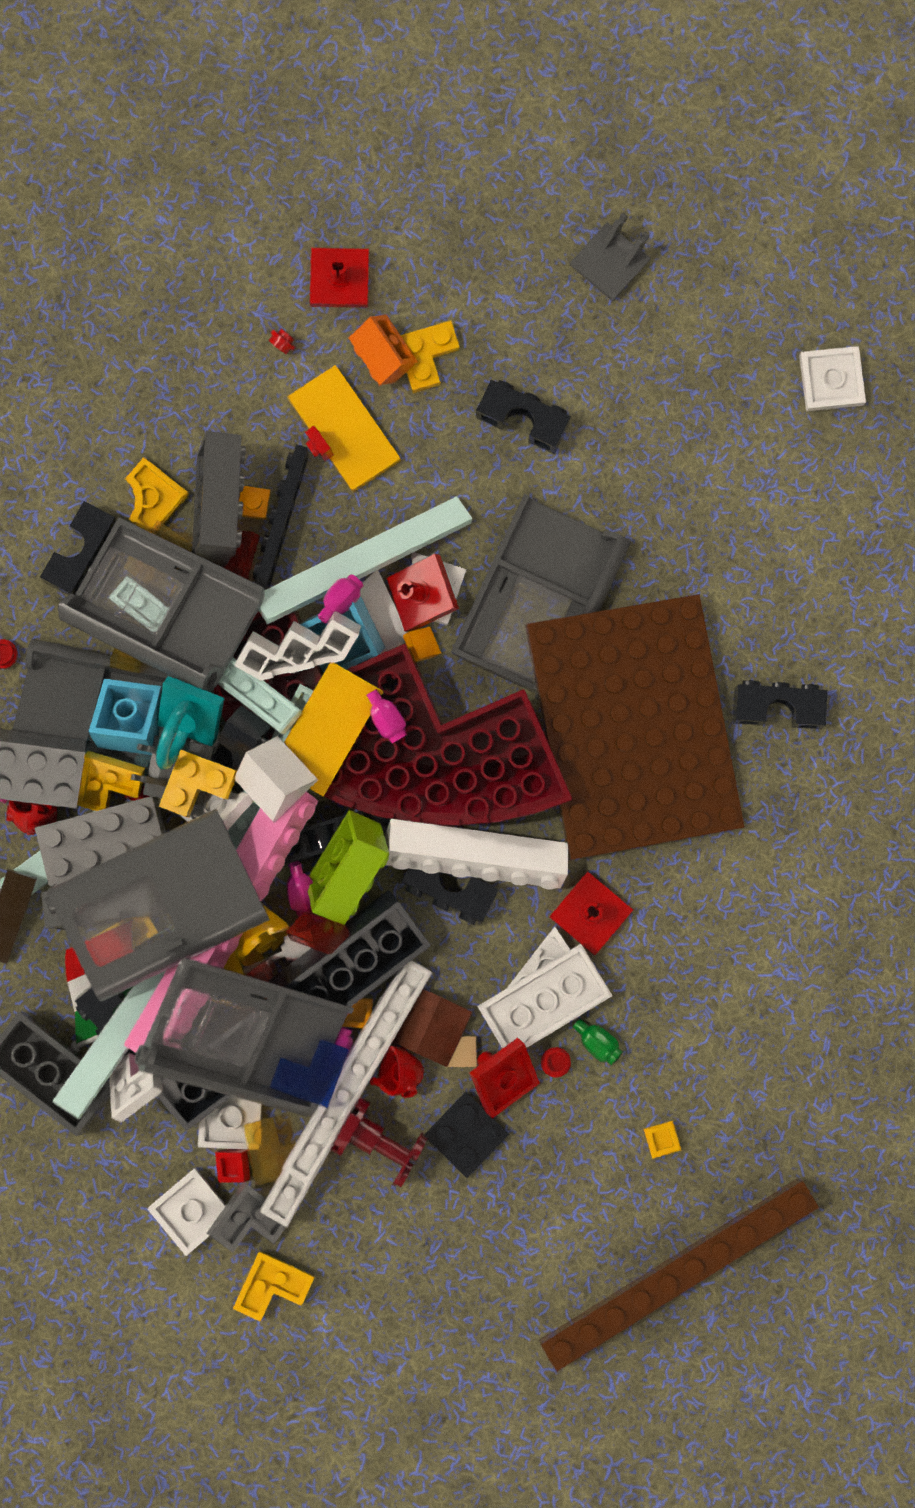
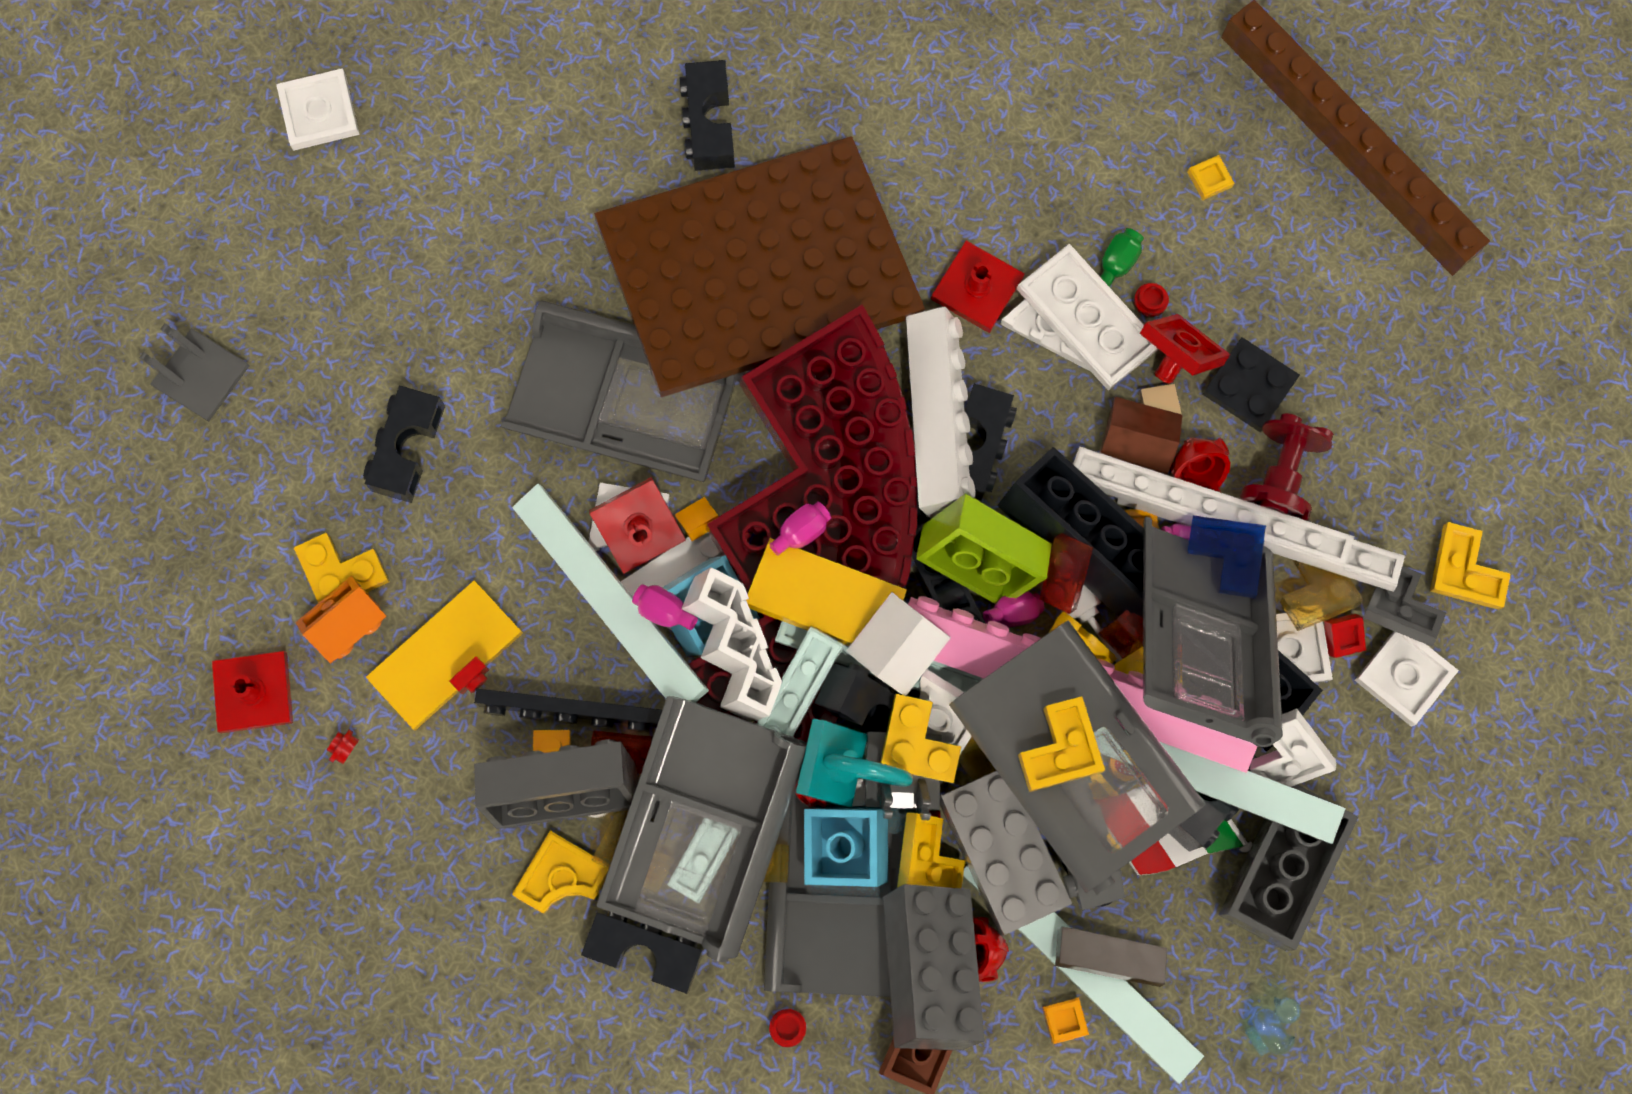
camera: 100 degrees left, 5 degrees down
(151, 892) = (1073, 751): none -> yellow plate

